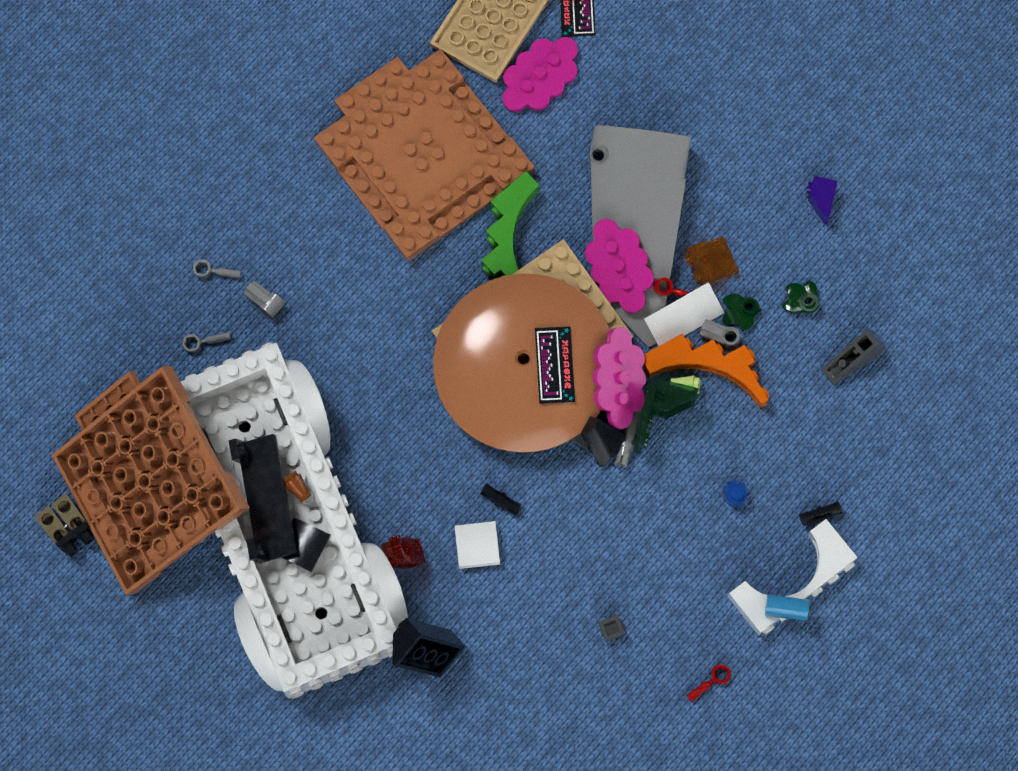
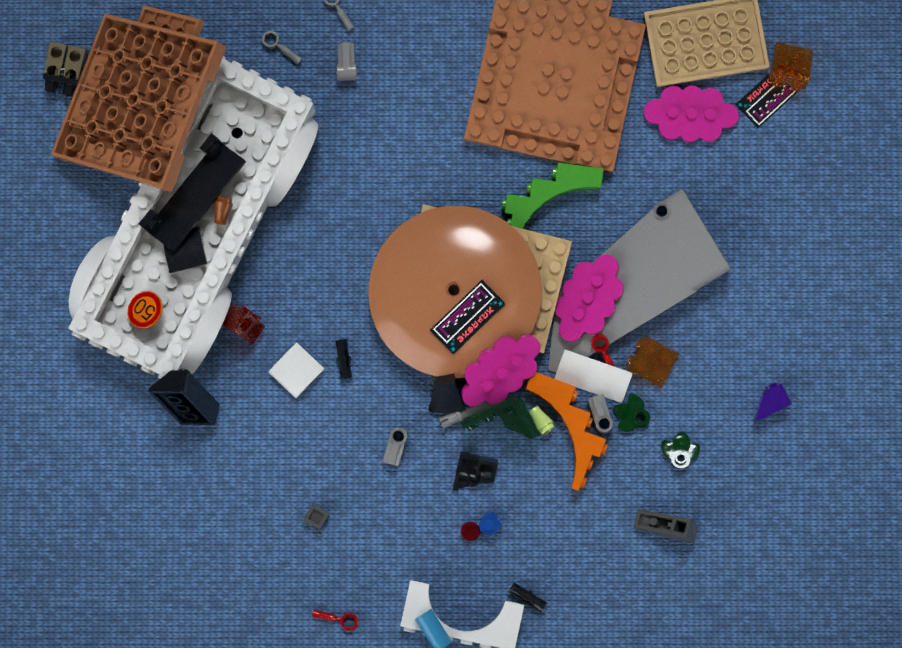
camera: 50 degrees right, 10 degrees up
(323, 617) = (145, 309): none -> piece
(608, 518) = (394, 448): none -> light grey piece
(681, 471) = (474, 470): none -> black slope
(728, 515) = (470, 531): none -> dark red plate

